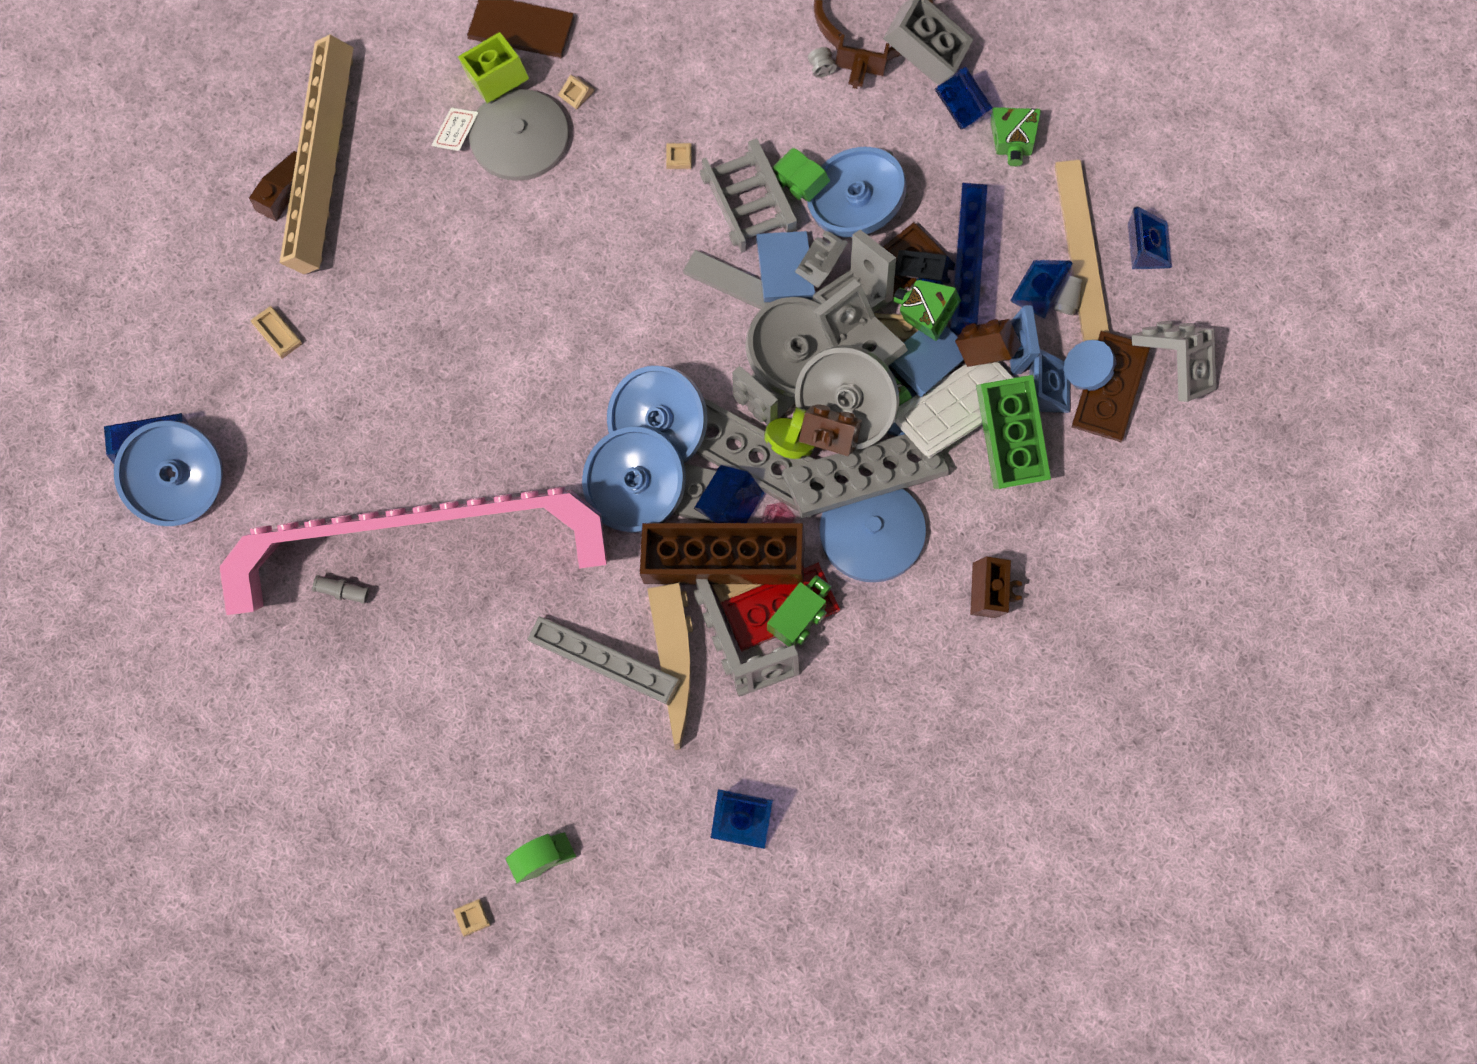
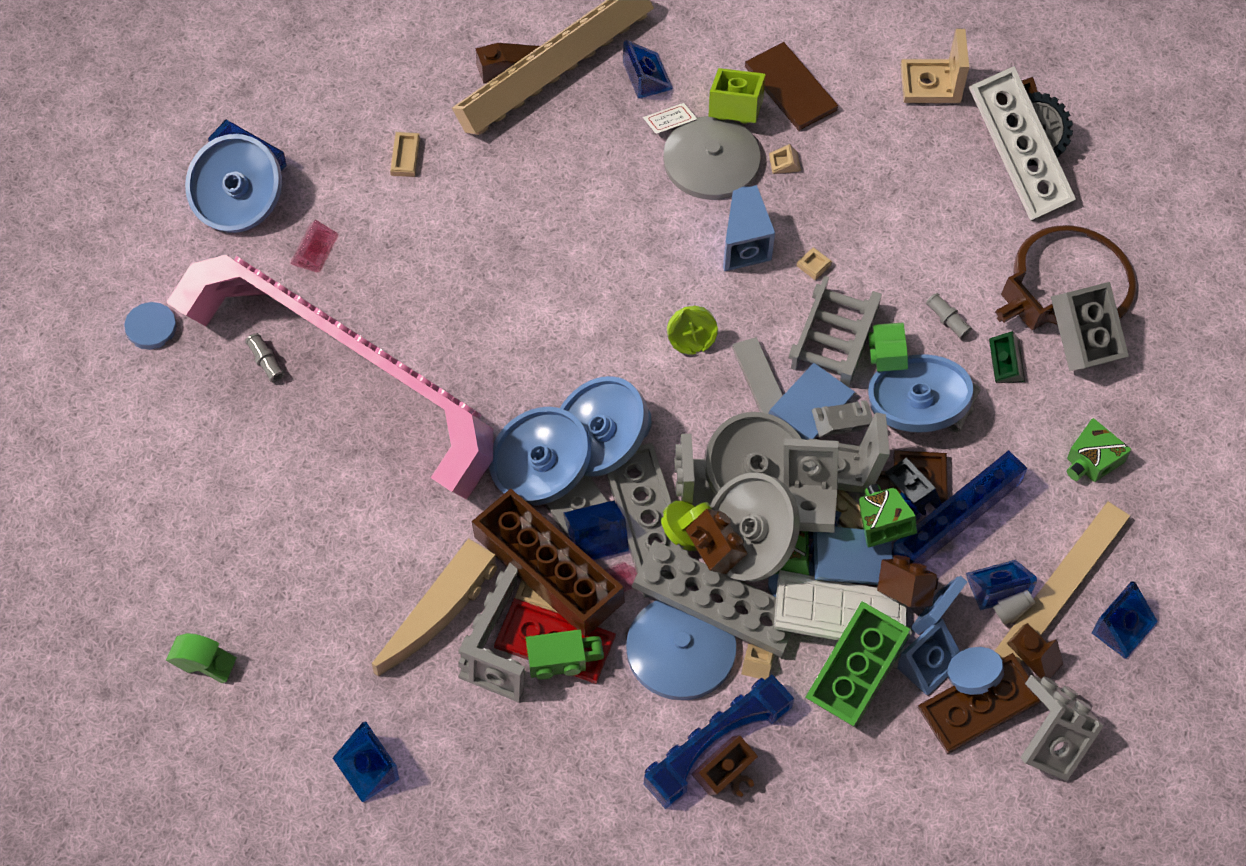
camera: 40 degrees right, 10 degrees down
(219, 644) = (150, 325): none -> medium blue tile
(281, 469) = (313, 246): none -> clear pink slope
(396, 106) = (644, 70): none -> clear blue slope
(471, 918) = (114, 657): tan tile -> none
(604, 660) = (387, 563): light grey tile -> none
(609, 170) = (748, 231): none -> medium blue slope
(646, 284) = (692, 330): none -> lime tile
(815, 114) = (948, 316): none -> light grey pin
(822, 62) = (992, 282): light grey wheel -> none
(885, 113) = (1007, 358): none -> dark green slope
(935, 493) = (757, 662): none -> tan slope
(961, 630) = (764, 702): none -> clear blue arch
(963, 98) = (1076, 394): clear blue bracket -> none
(1113, 316) = (1039, 655): none -> reddish brown slope

